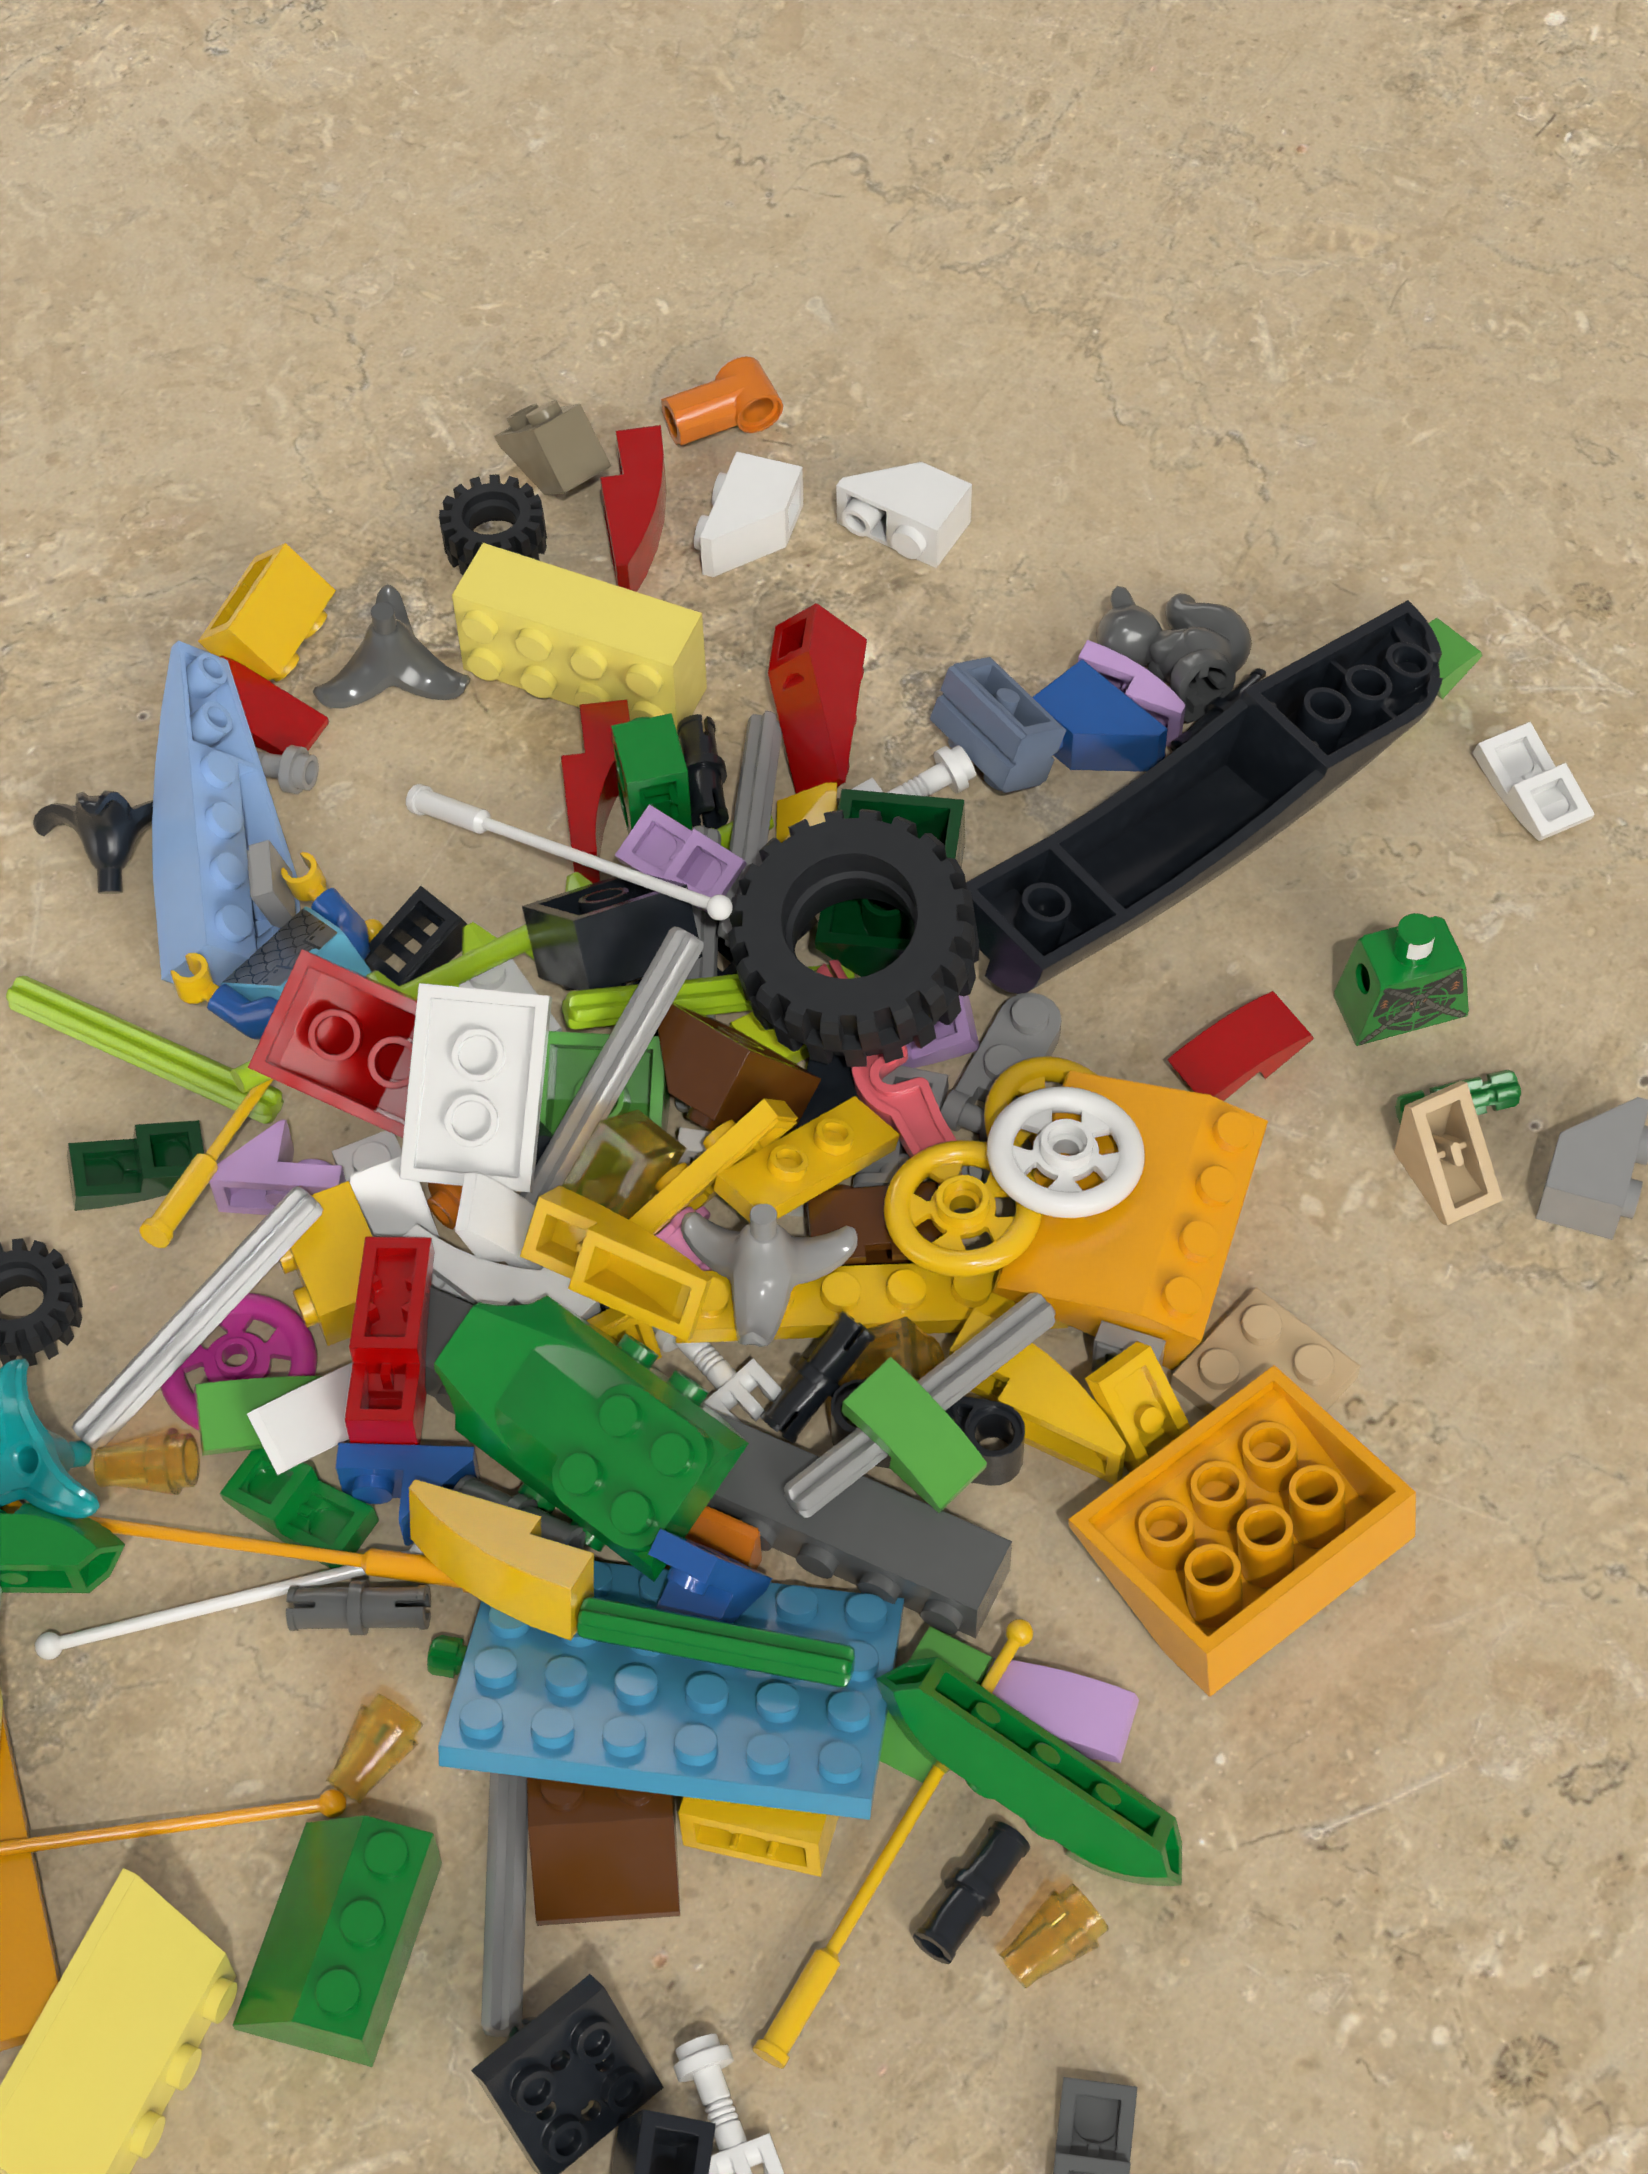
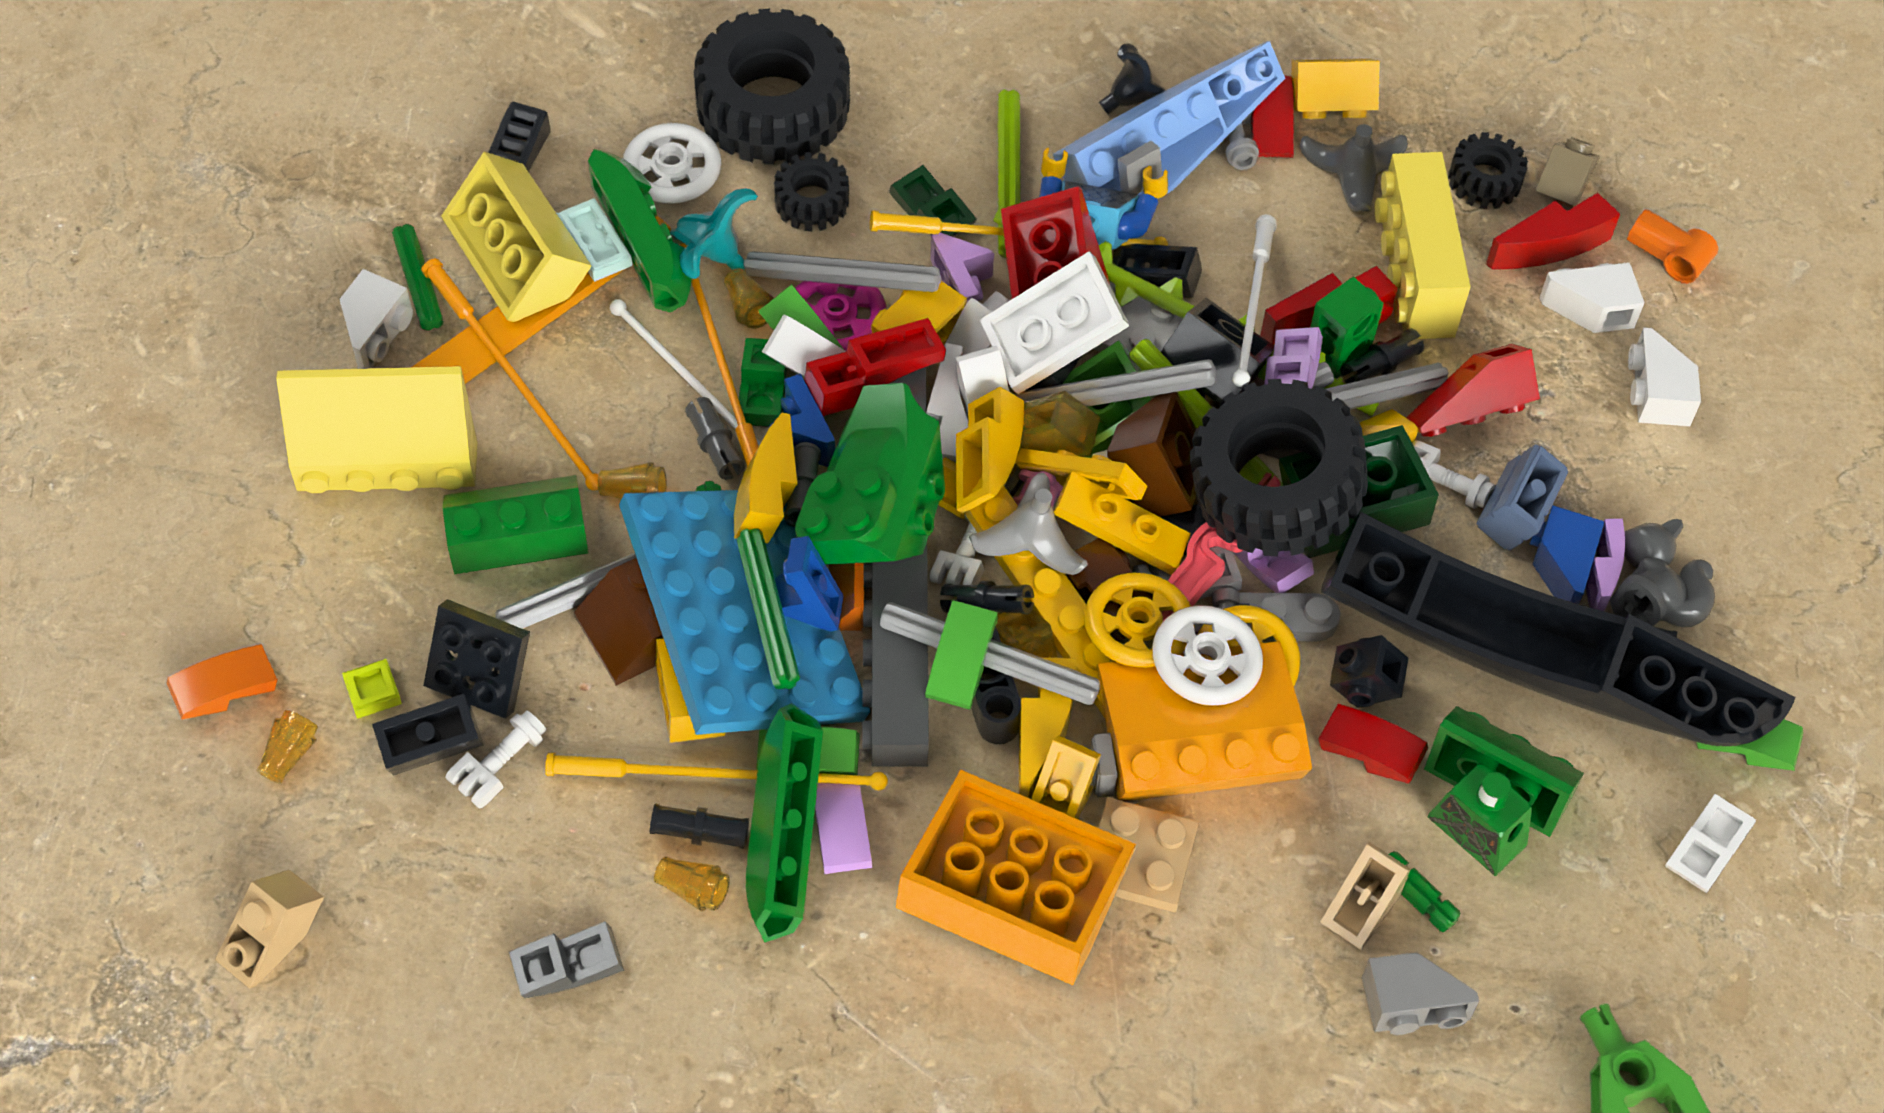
camera: 60 degrees right, 0 degrees up
(1151, 1002) = (1369, 671): none -> black brick
(1308, 947) = (1541, 779): none -> green slope

